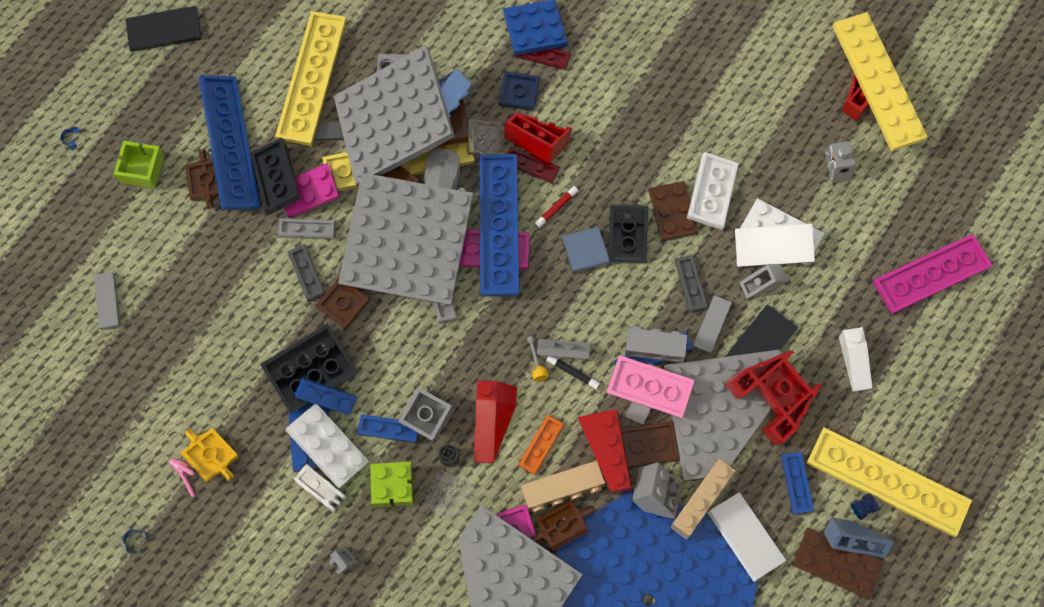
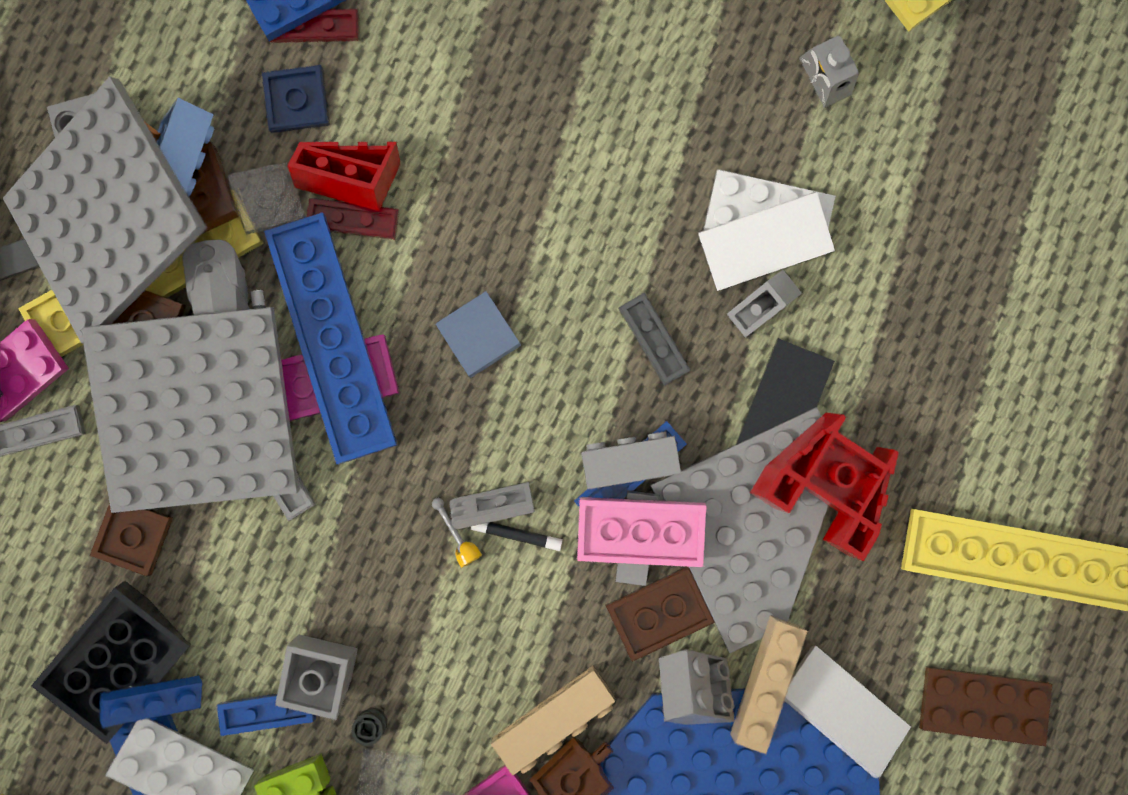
camera: 15 degrees left, 15 degrees up
(306, 273) = (60, 503): dark grey tile -> none
(493, 414) = (415, 640): red wedge -> none
(541, 445) = (503, 662): orange tile -> none
(558, 205) = (412, 277): red bar -> none
(607, 443) = (604, 643): red wedge -> none
(628, 233) = (535, 287): black slope -> none
(670, 209) = (594, 228): reddish brown plate -> none
(712, 191) = (646, 178): white tile -> none
(712, 325) = (704, 395): light grey tile -> none
(797, 483) = (897, 605): blue plate -> none
(855, 538) = (1000, 666): sand blue slope -> none
(856, 358) = (935, 385): white slope -> none
(864, 506) = (1005, 611): clear blue wheel -> none
(932, 273) = (1015, 212): dark pink plate -> none

